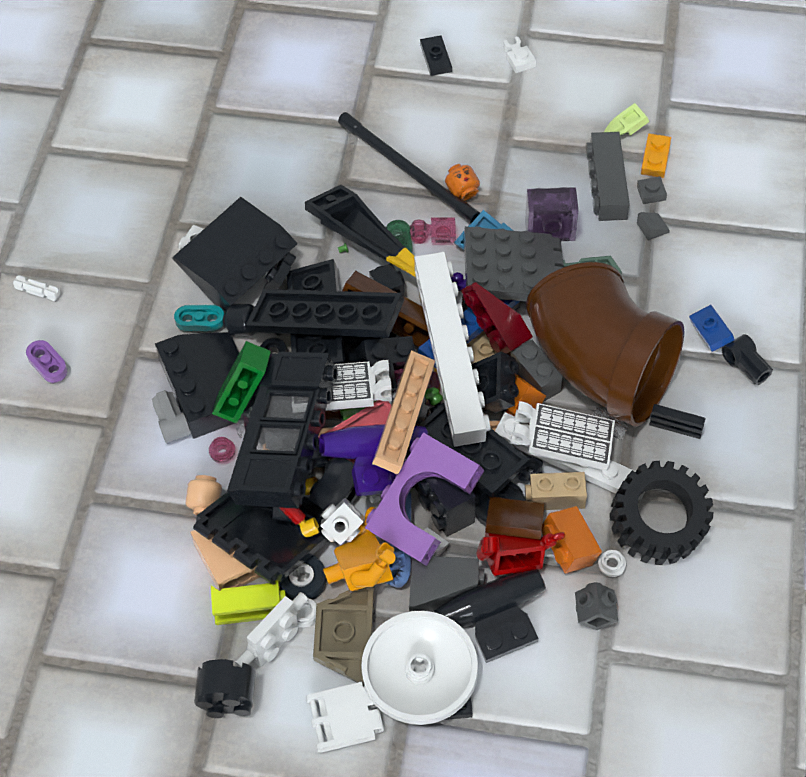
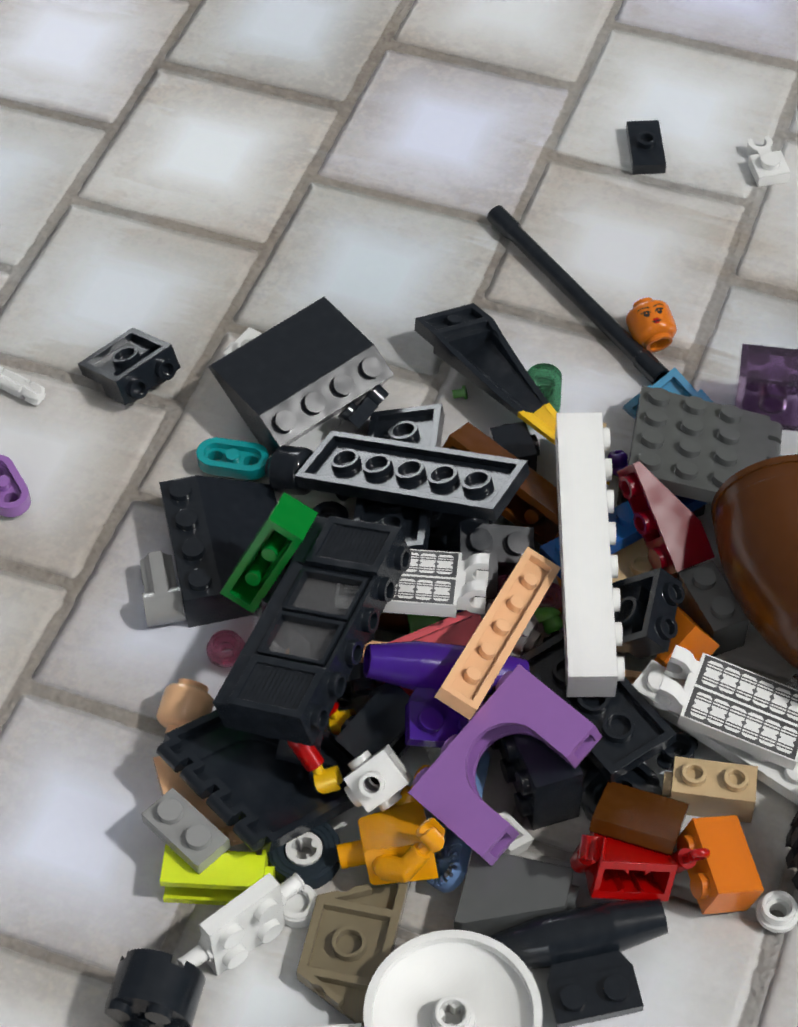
camera: 10 degrees right, 5 degrees down
(116, 263) = (131, 365): none -> black plate
(222, 576) = (186, 830): none -> light grey plate
(441, 230) = (606, 387): clear pink plate -> none
(596, 606) = (741, 972): dark grey brick -> none

